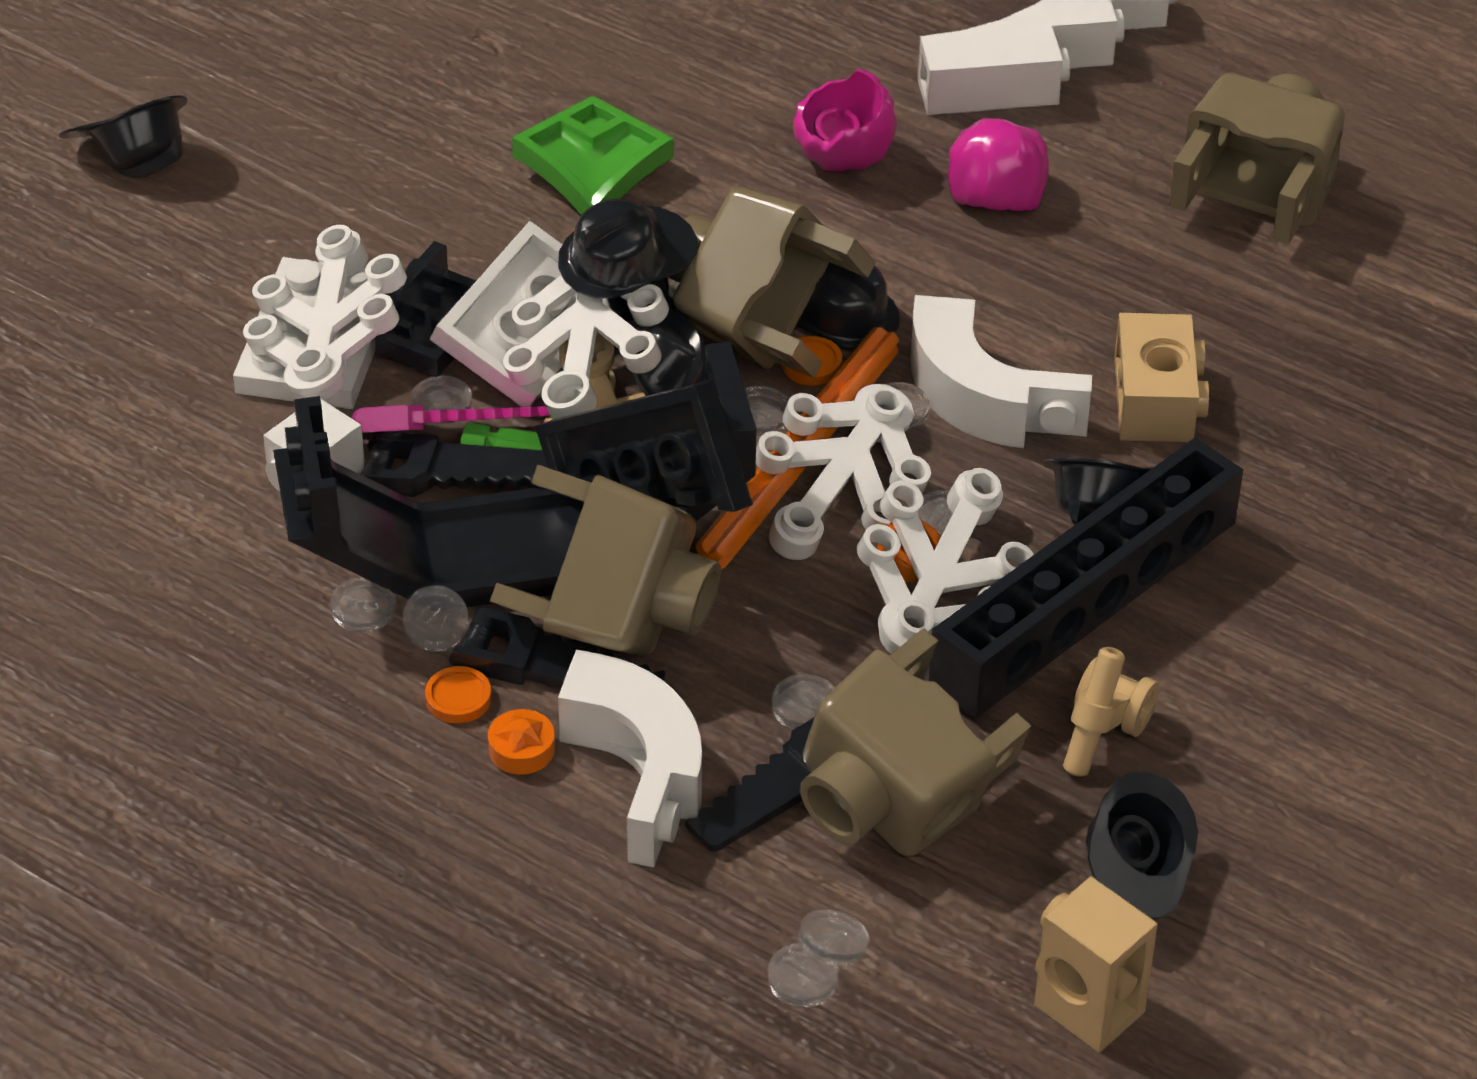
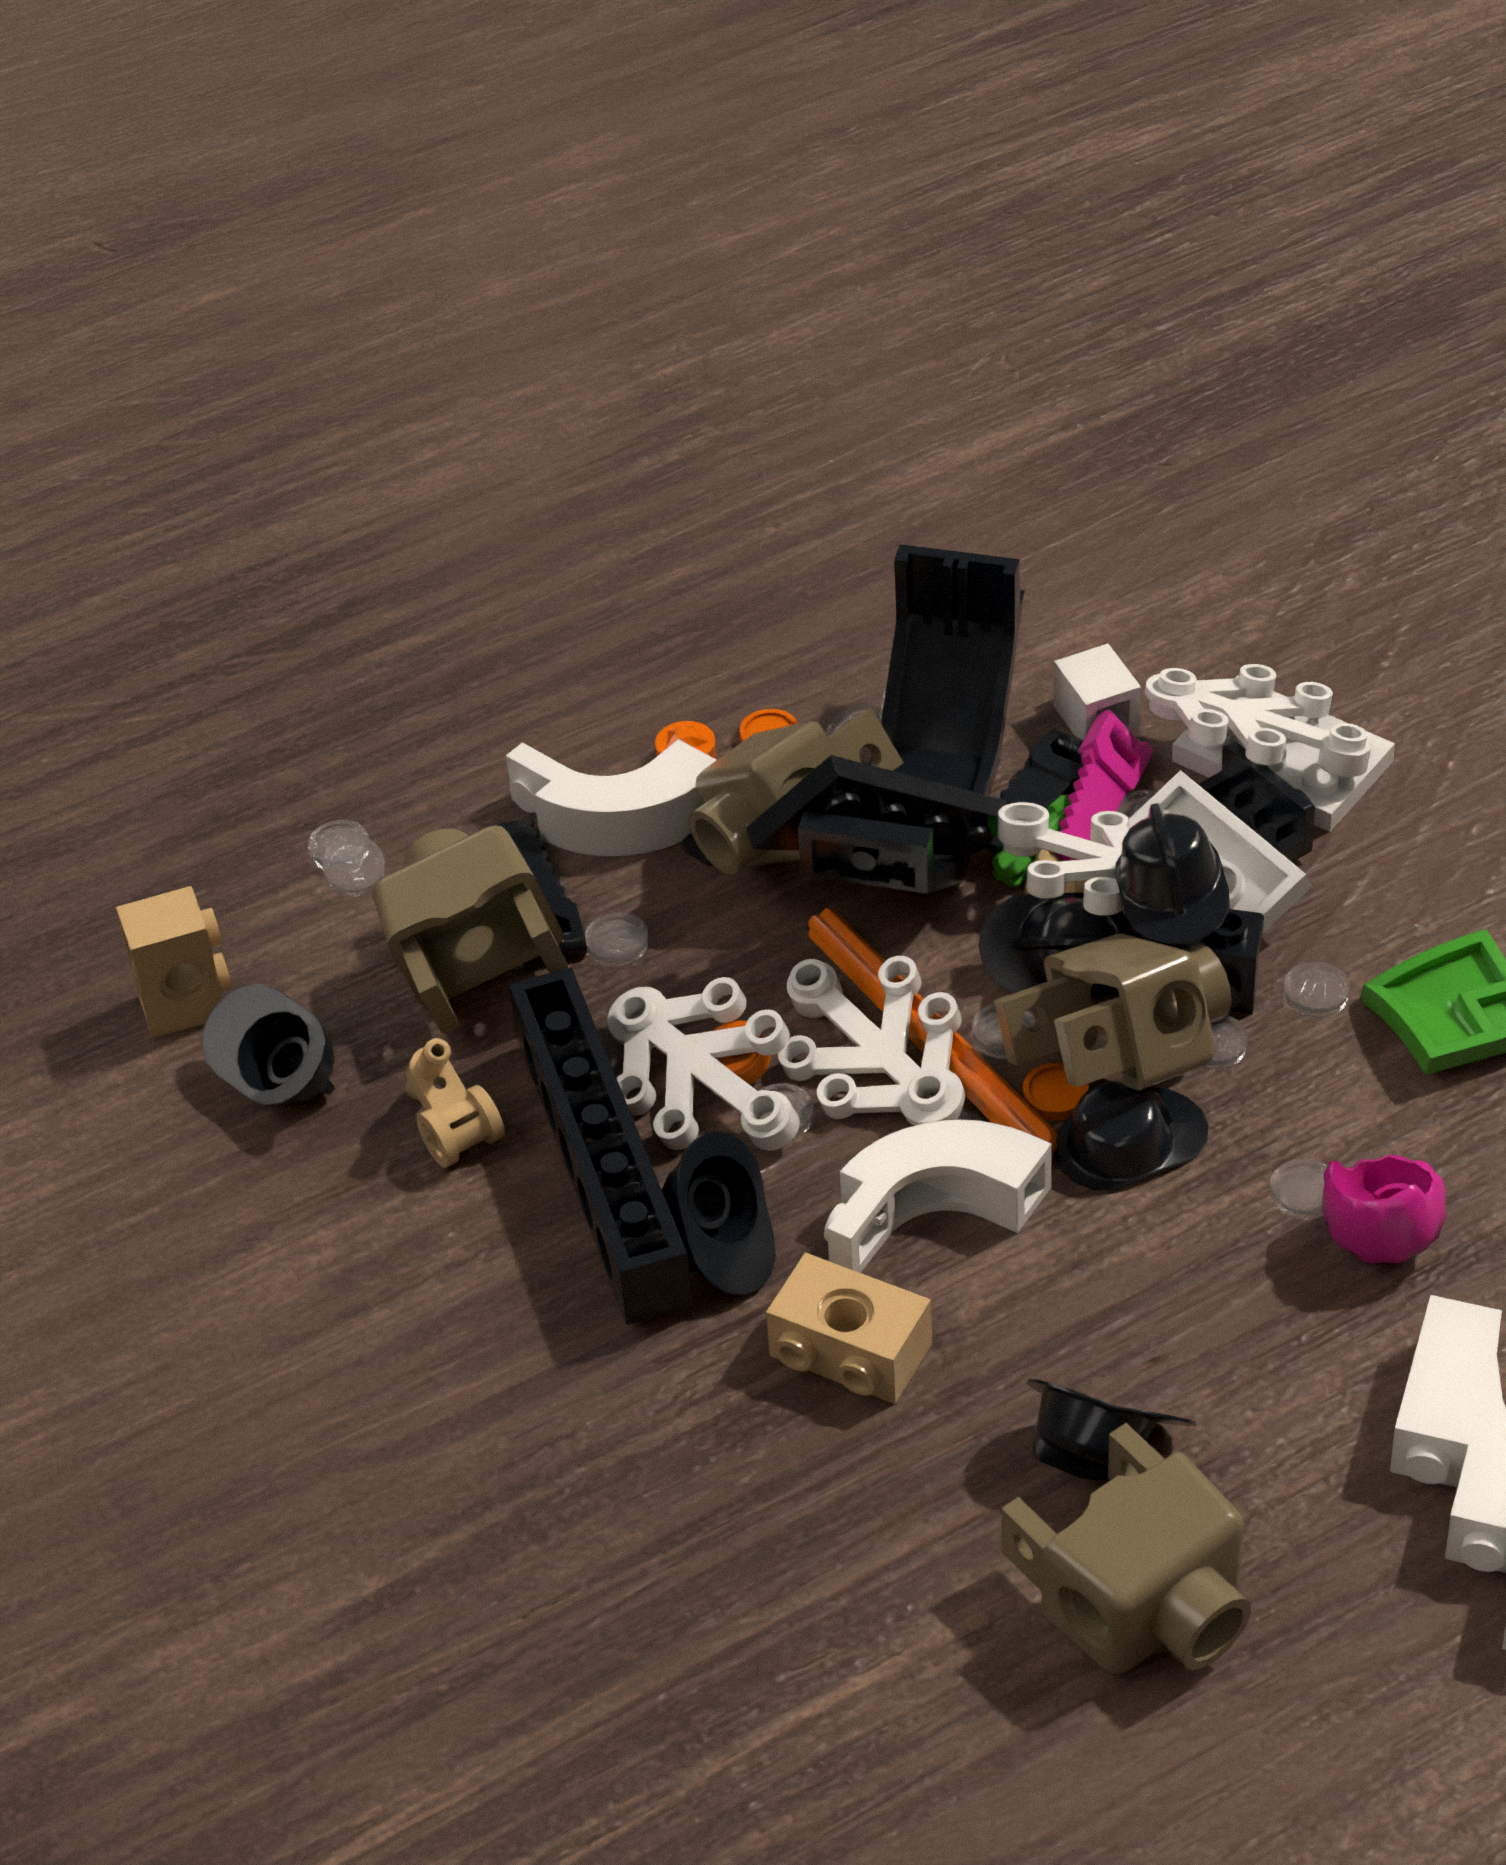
camera: 120 degrees right, 0 degrees up
(827, 199) = (1299, 1188): none -> clear piece
(998, 166) = (1259, 1327): dark pink hair -> none
(1148, 209) = (1077, 1427): none -> black piece

